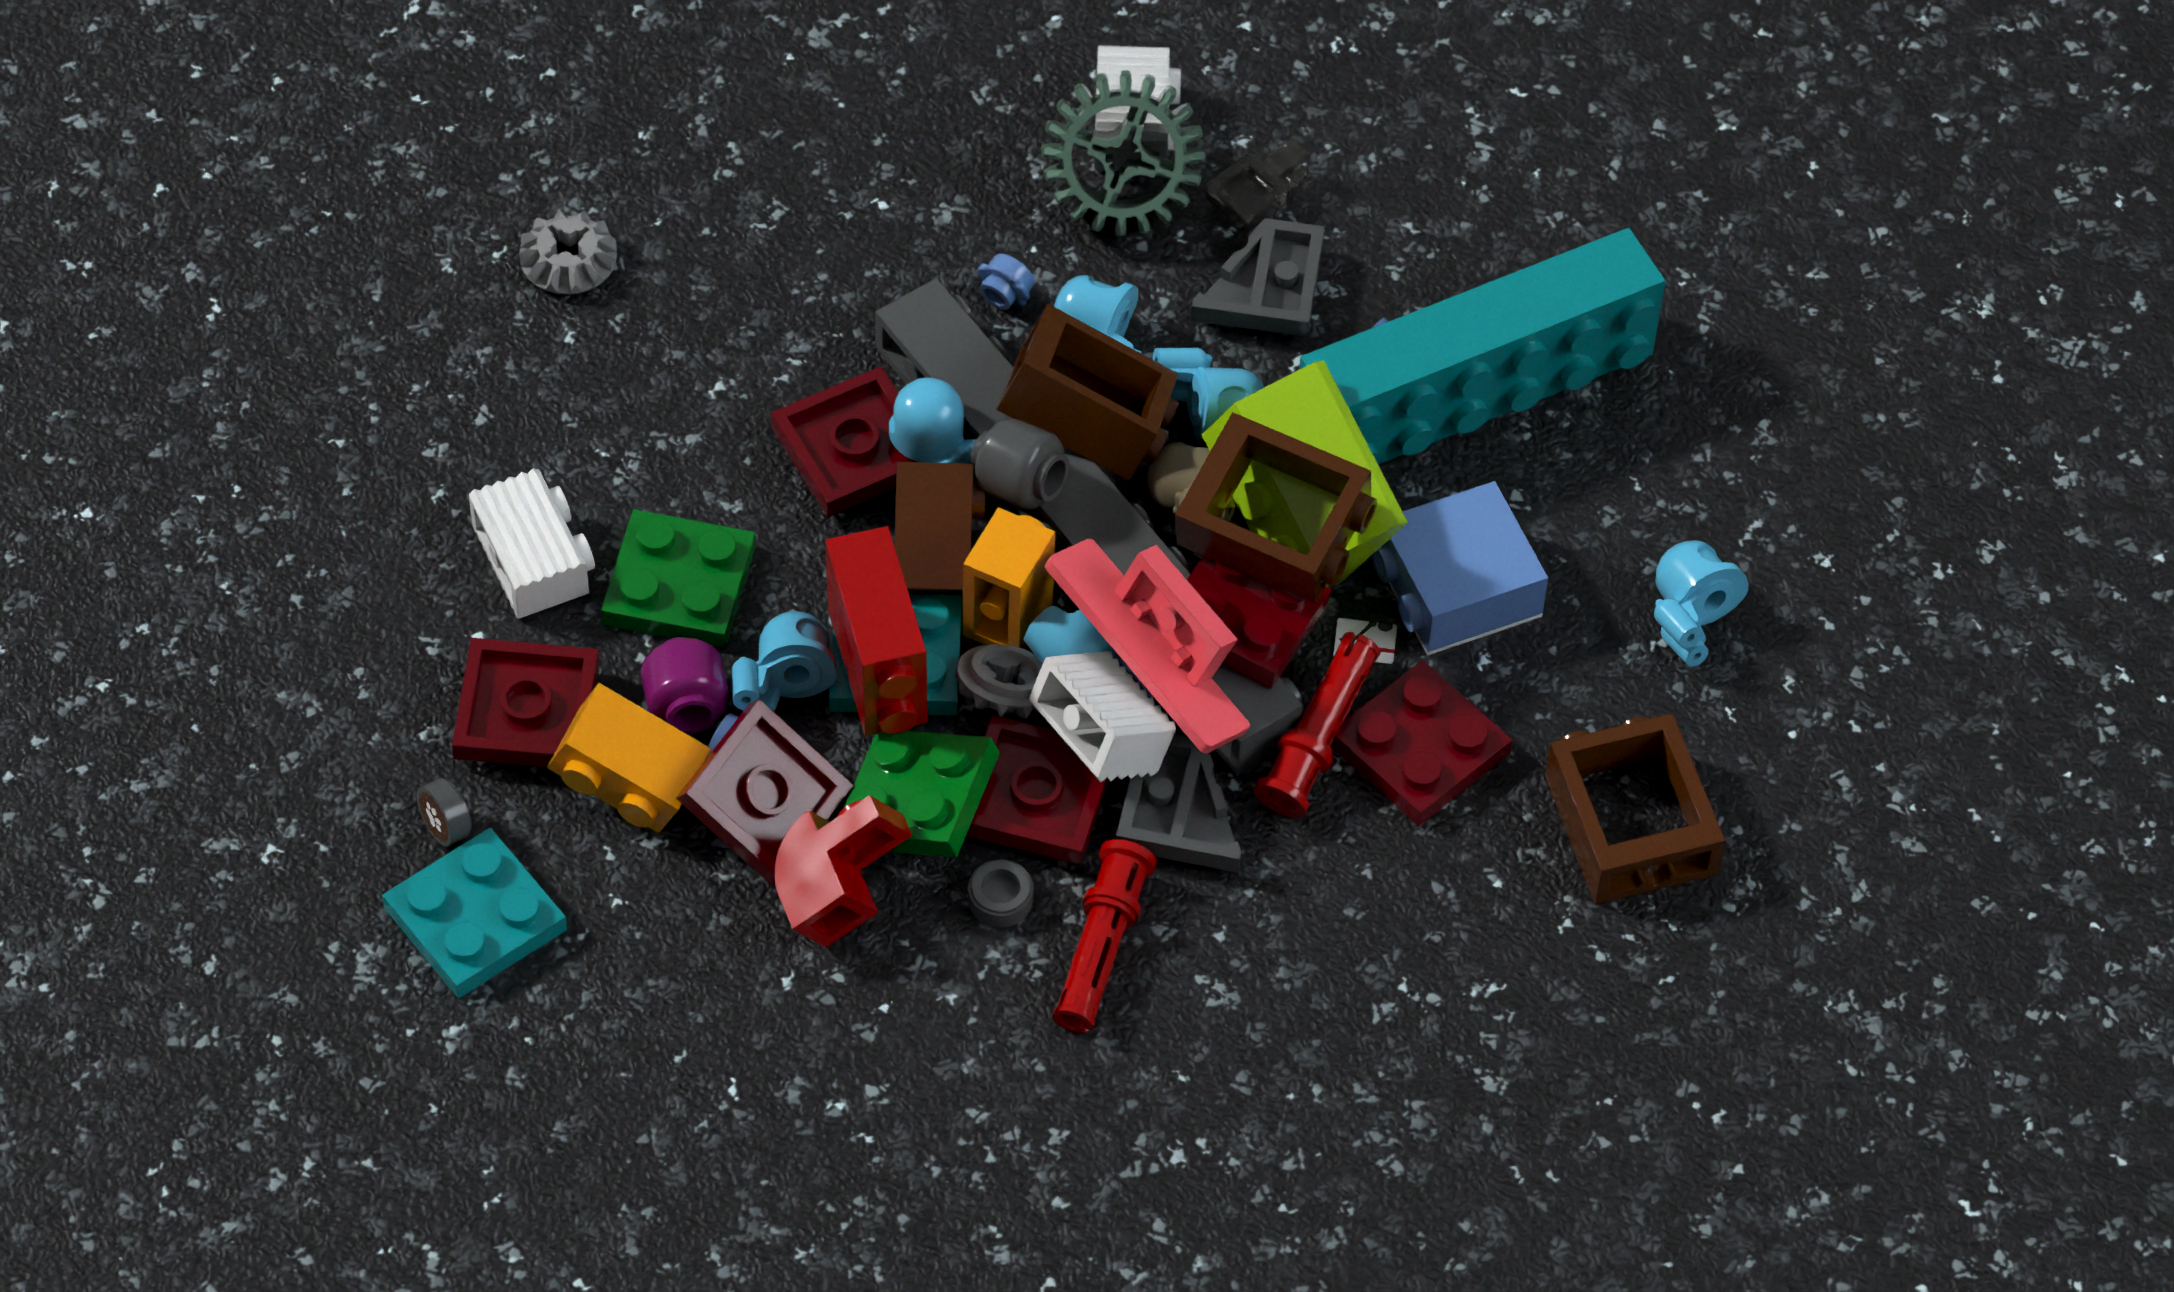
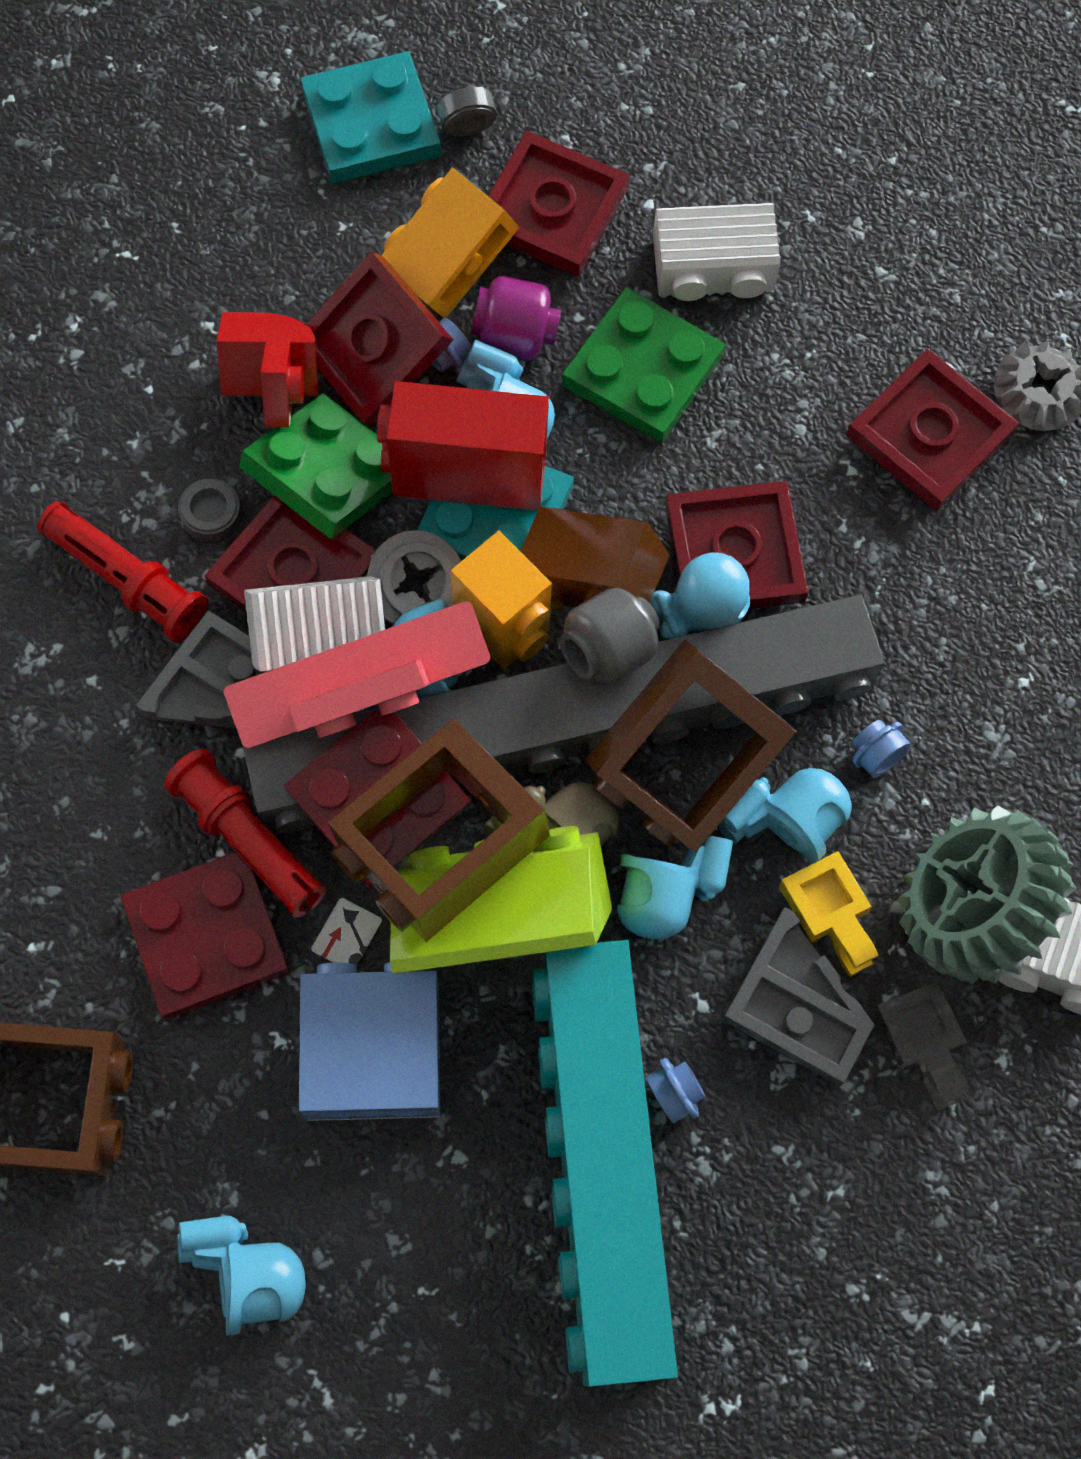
camera: 110 degrees right, 15 degrees up
(658, 321) = (932, 429): none -> dark red plate
(1172, 279) = (830, 903): none -> yellow plate

